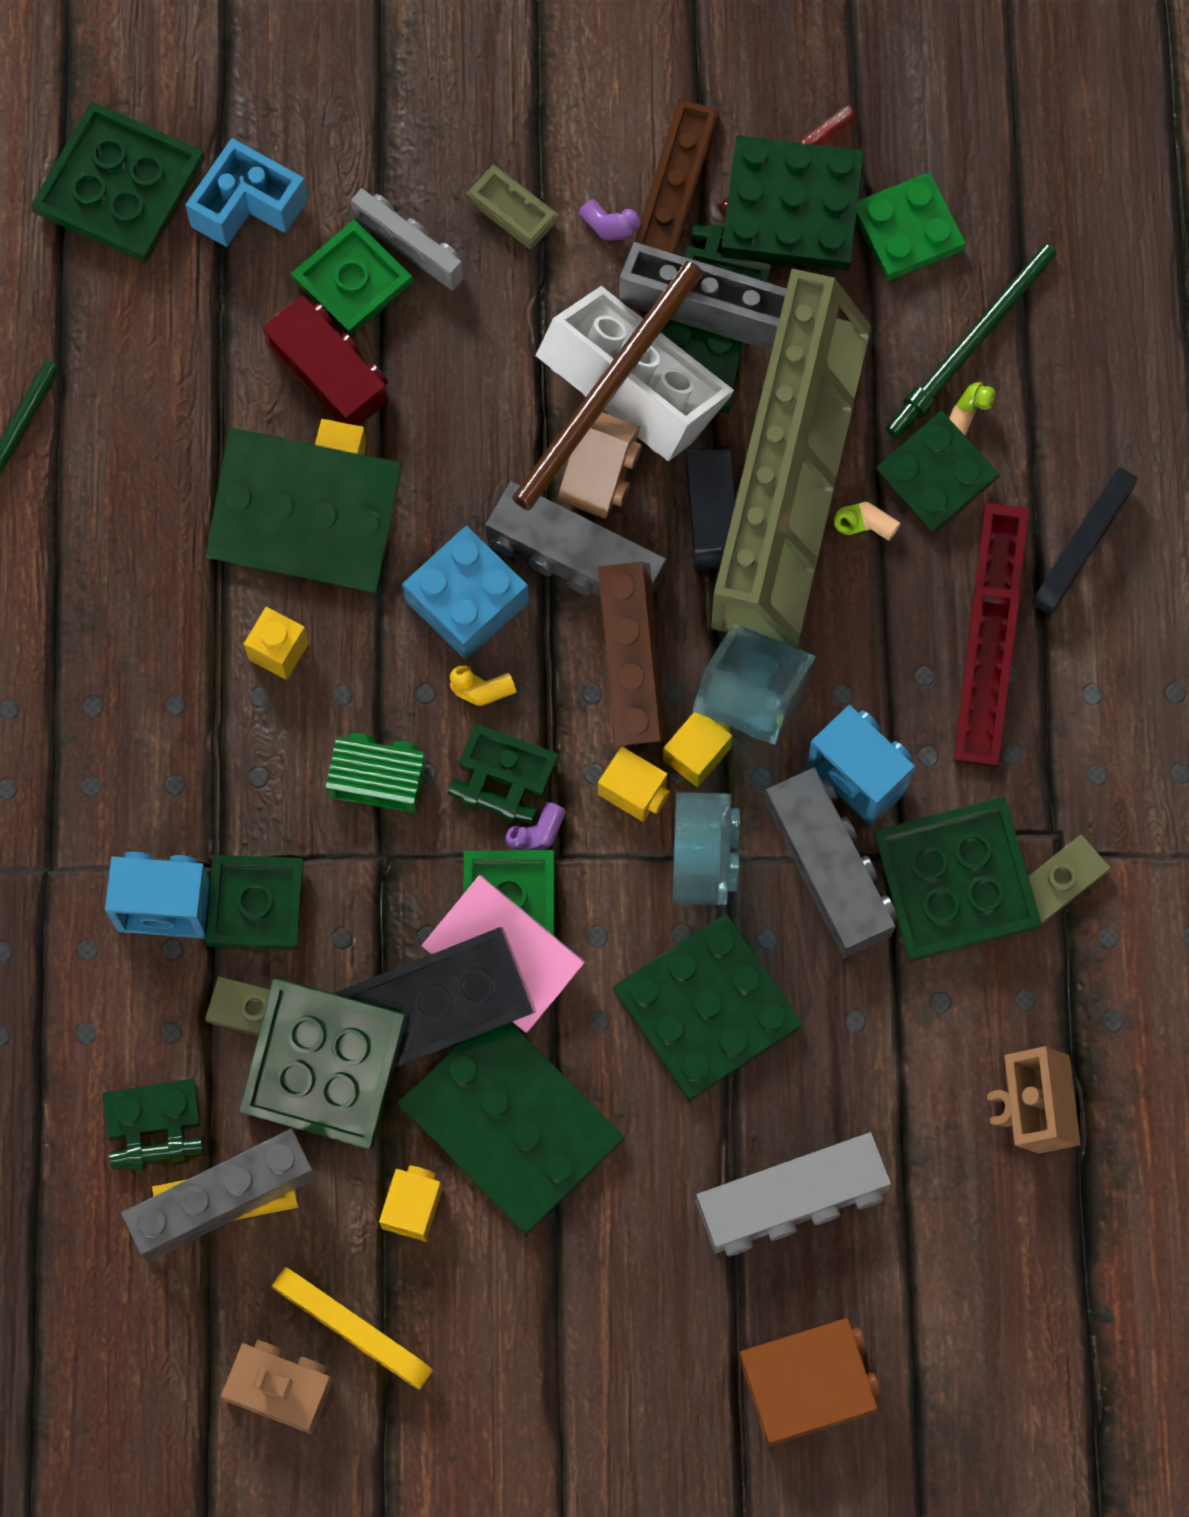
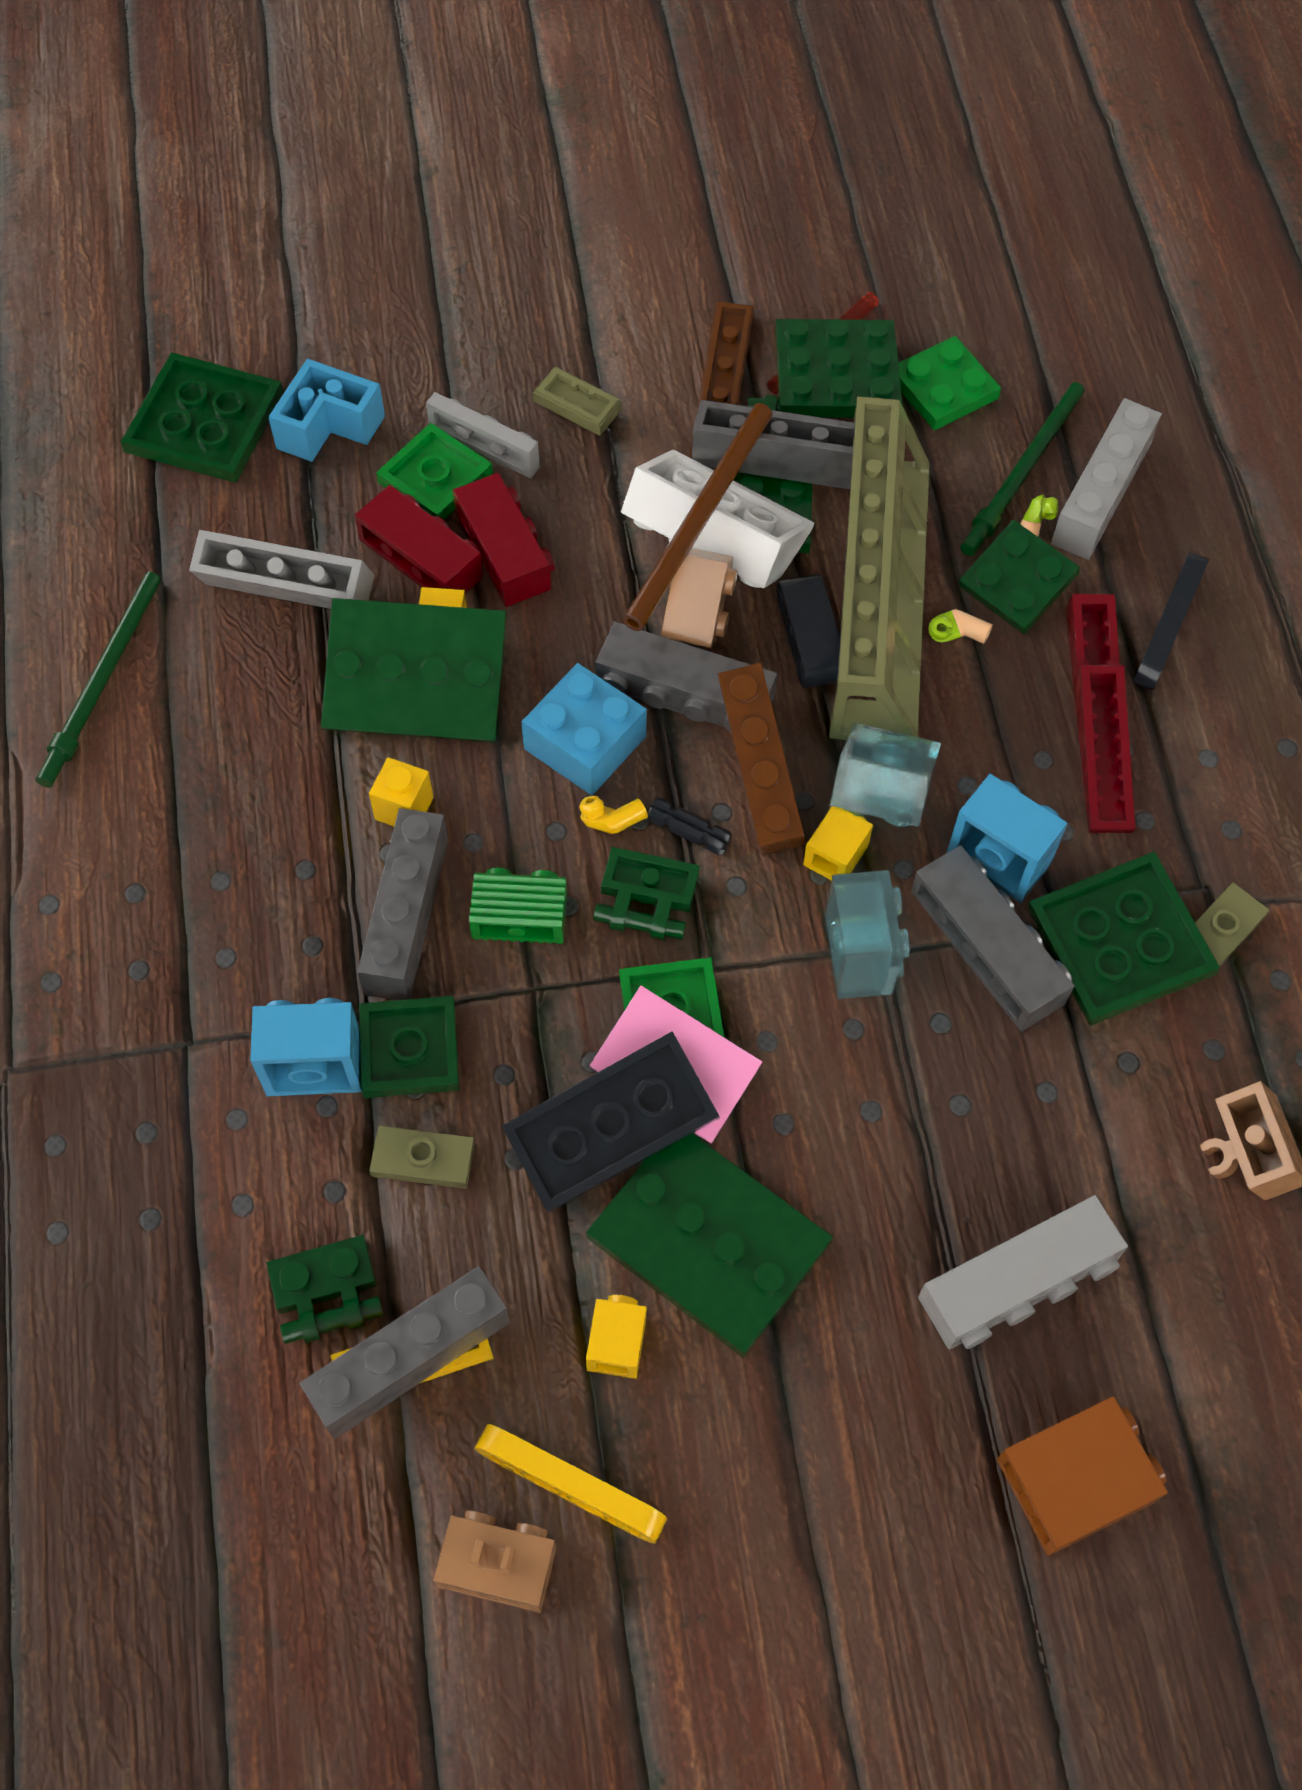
camera: 10 degrees left, 10 degrees down
(182, 382) = (278, 570): none -> light grey brick
(266, 758) = (403, 905): none -> flat silver brick
(323, 1063) = (502, 1198): plate -> none
(413, 366) = (505, 539): none -> dark red brick
(540, 835) = (694, 946): medium lavender arm -> none
(556, 707) = (689, 826): none -> black axle
(610, 226) = (670, 407): medium lavender arm -> none
(634, 785) = (780, 886): yellow brick -> none
(707, 1007) = (893, 1096): dark green plate -> none
(1052, 369) = (1105, 479): none -> light grey brick

